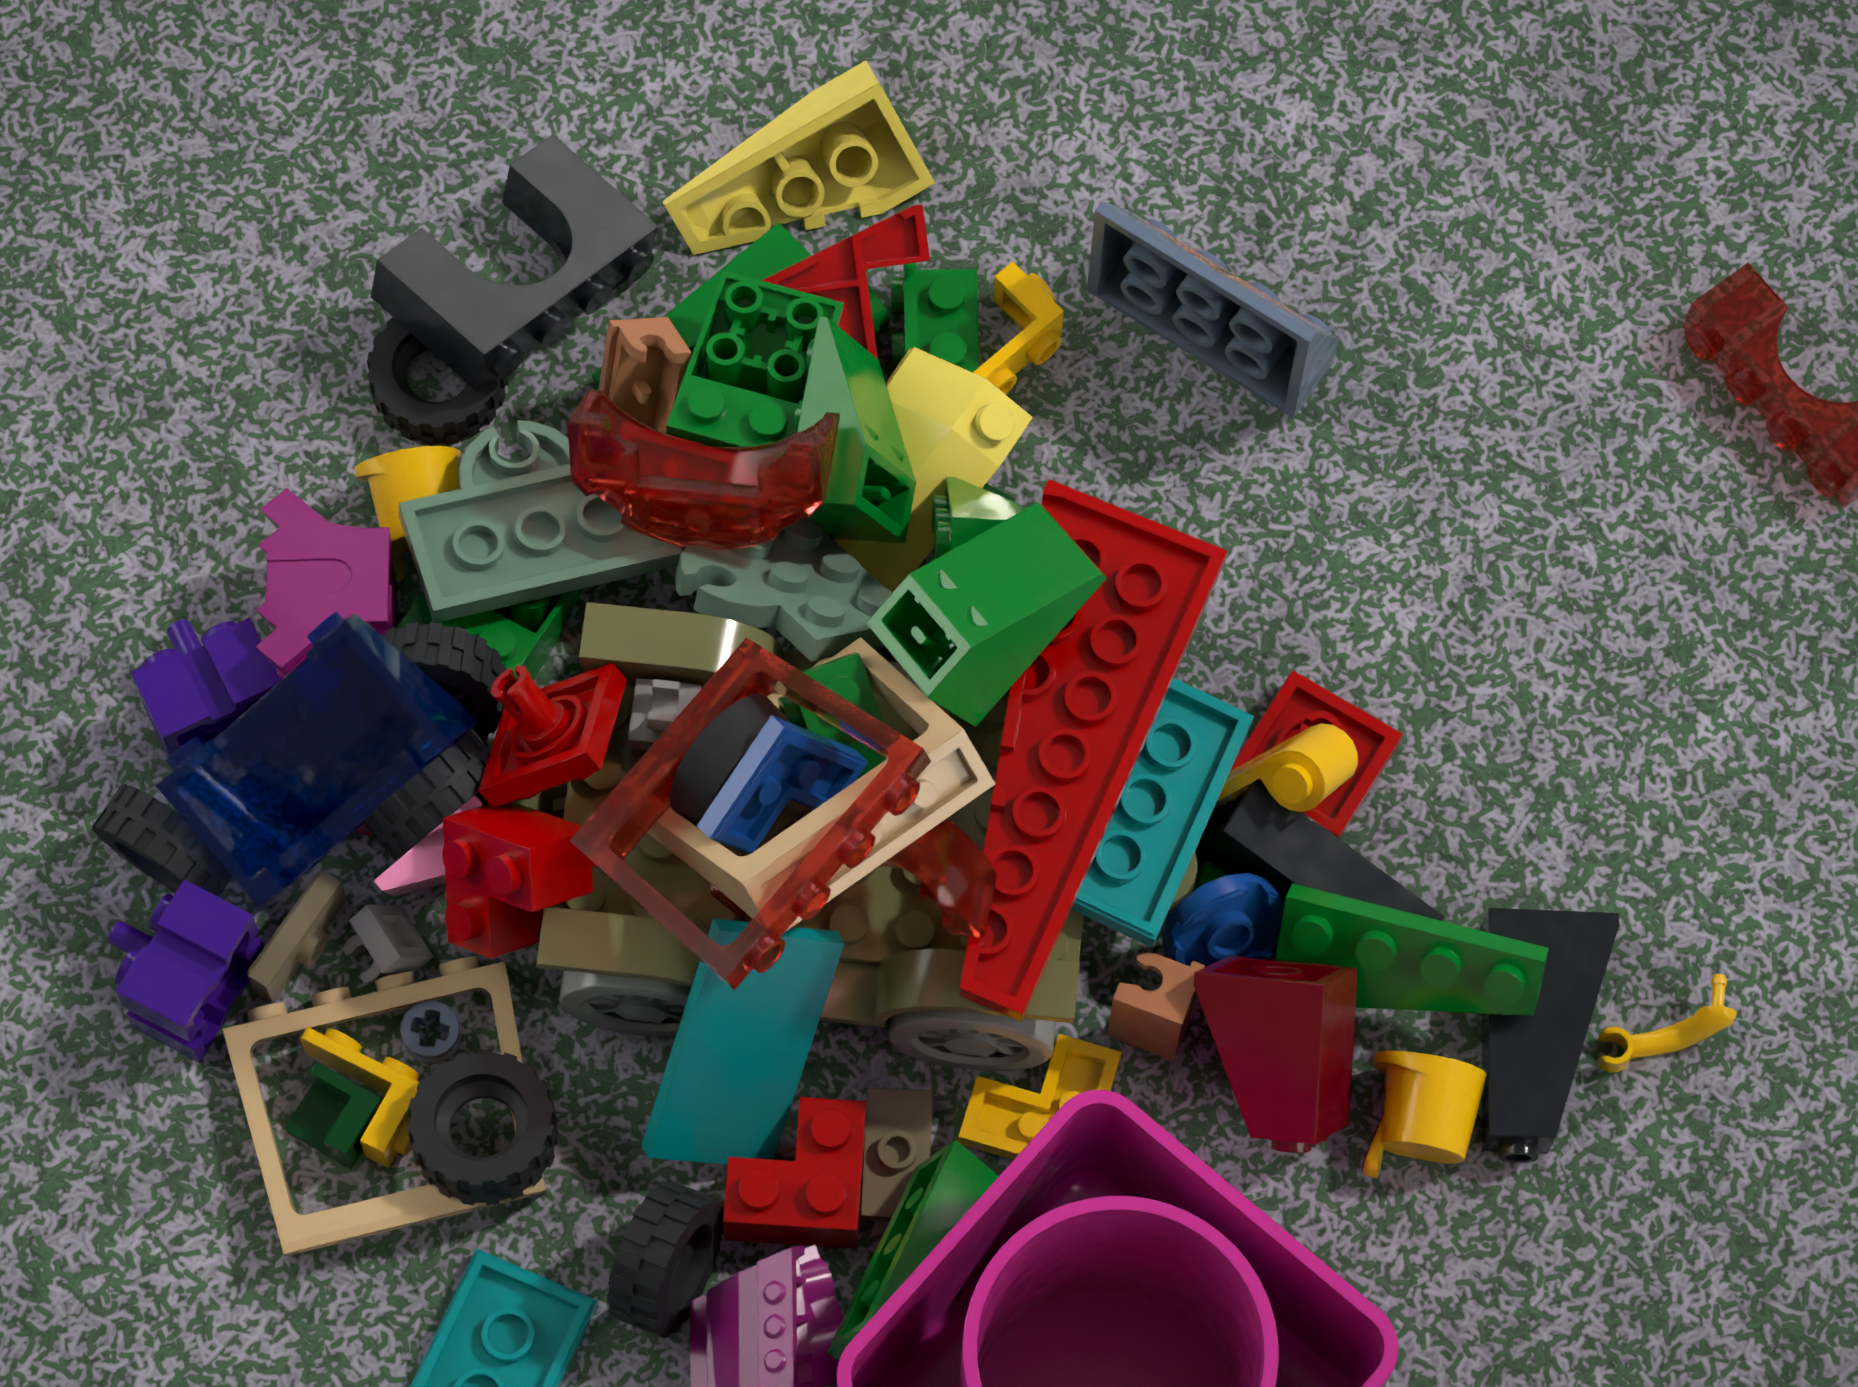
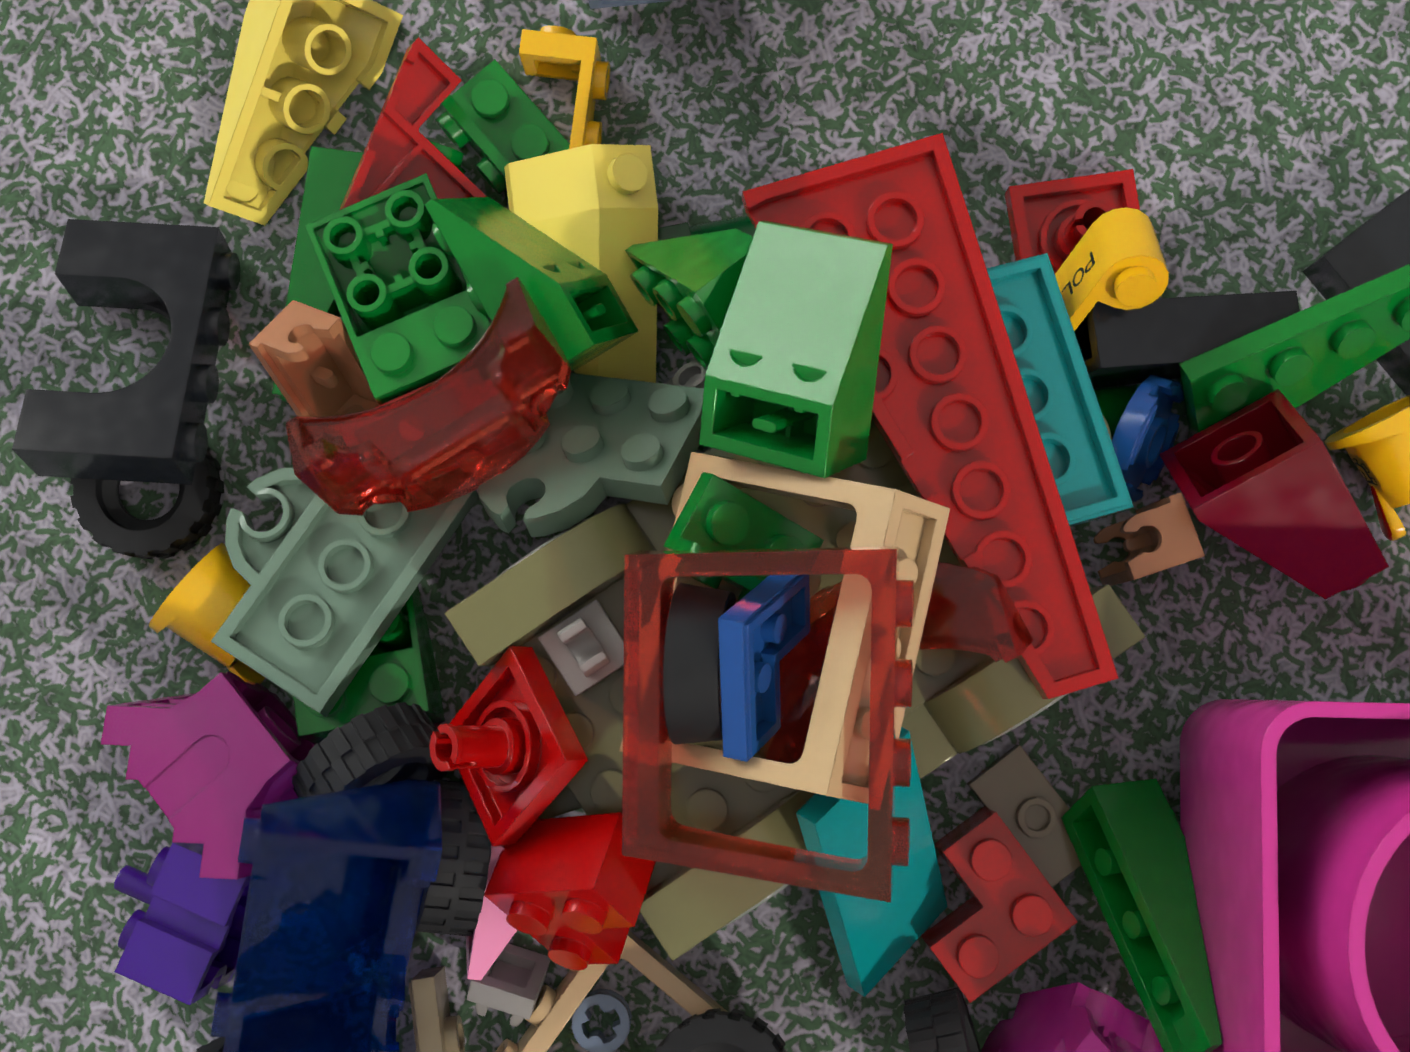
camera: 30 degrees left, 15 degrees up
(1007, 1118) = (1124, 709): yellow plate -> none

